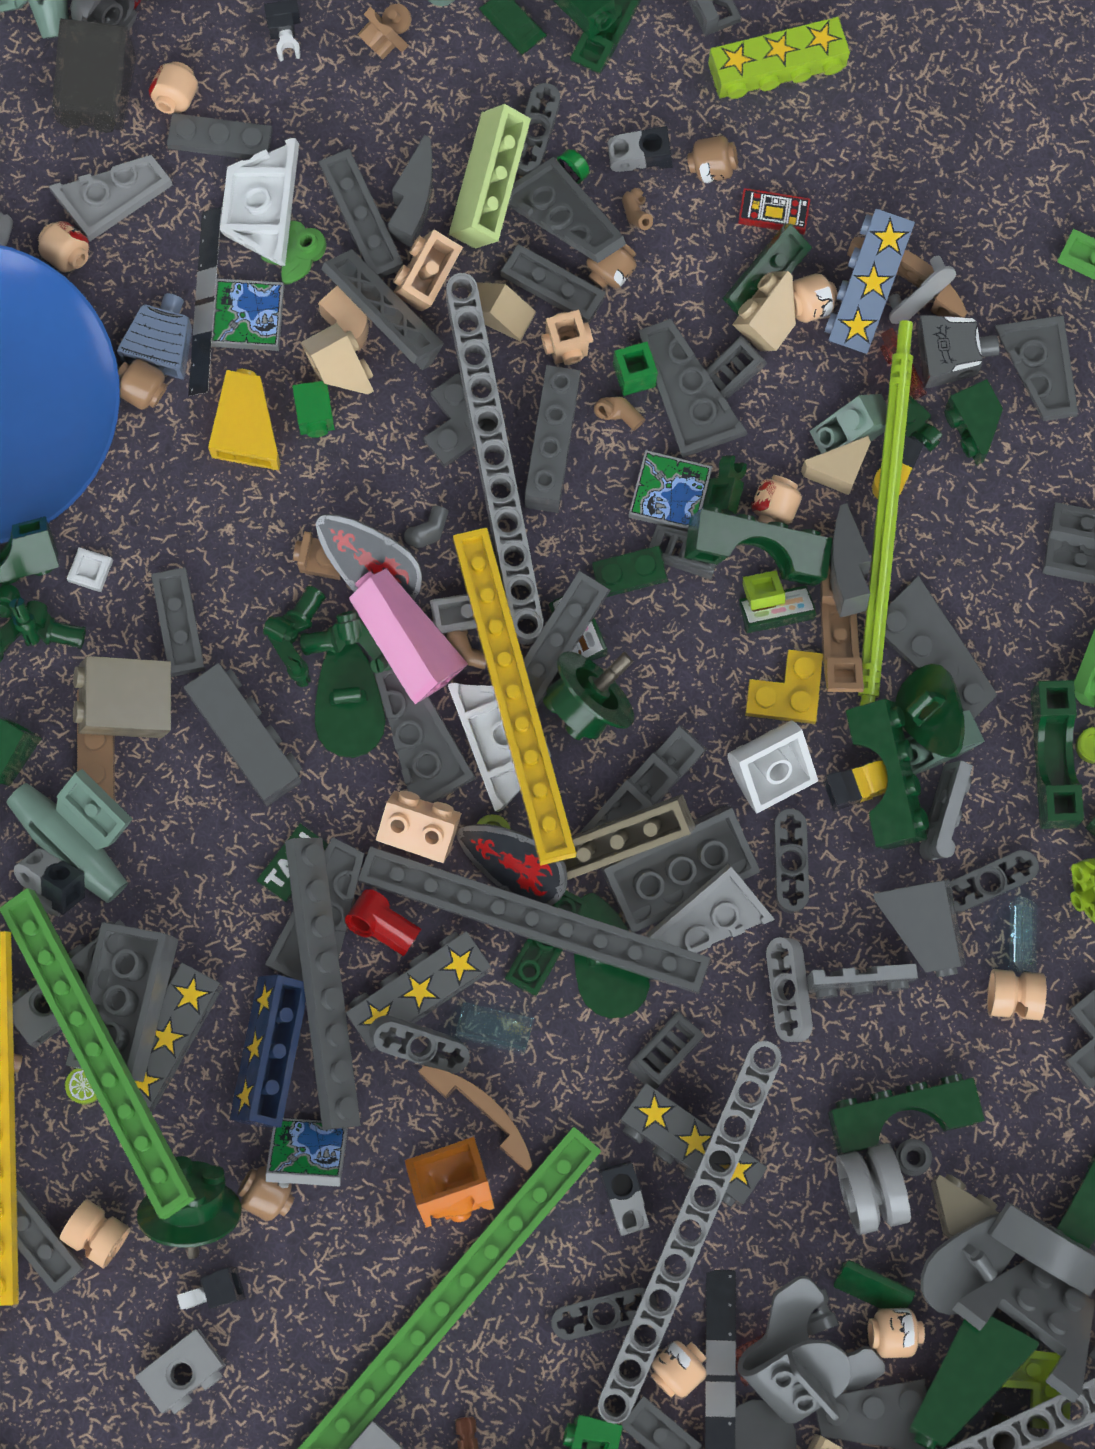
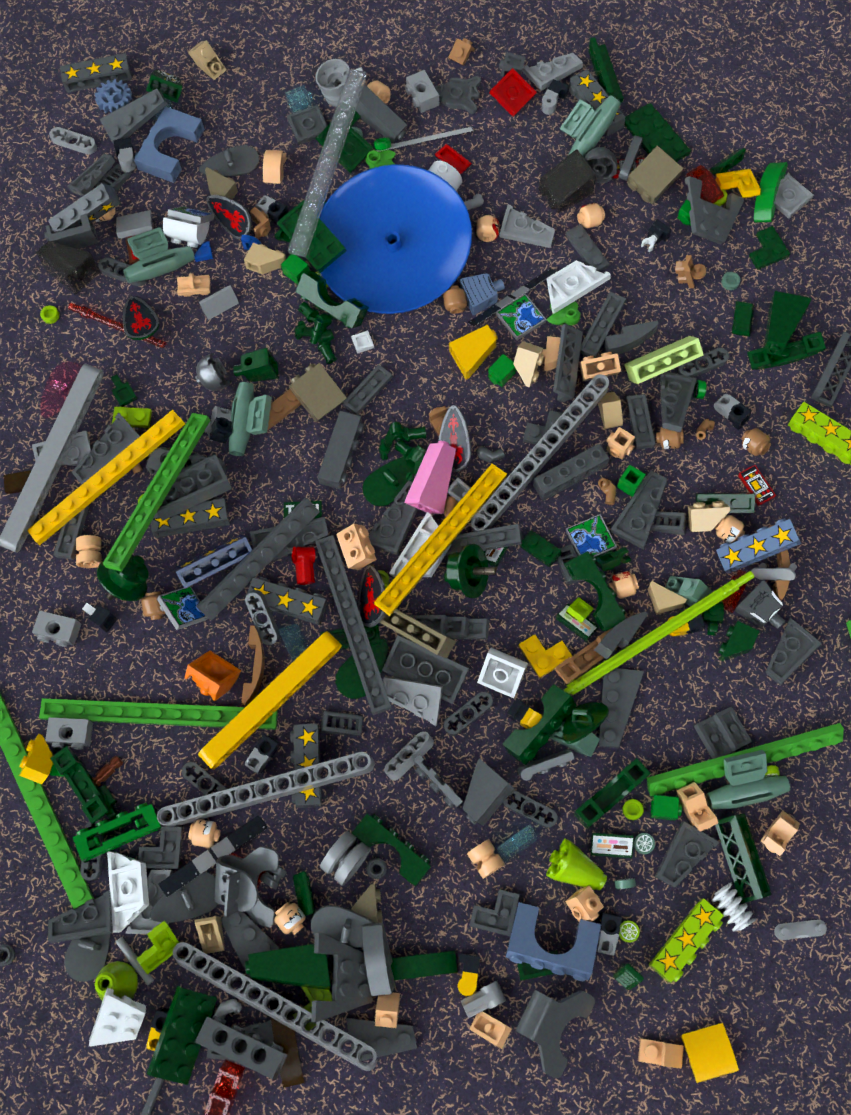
camera: 60 degrees right, 5 degrees down
(557, 1126) = (269, 700): none -> yellow beam

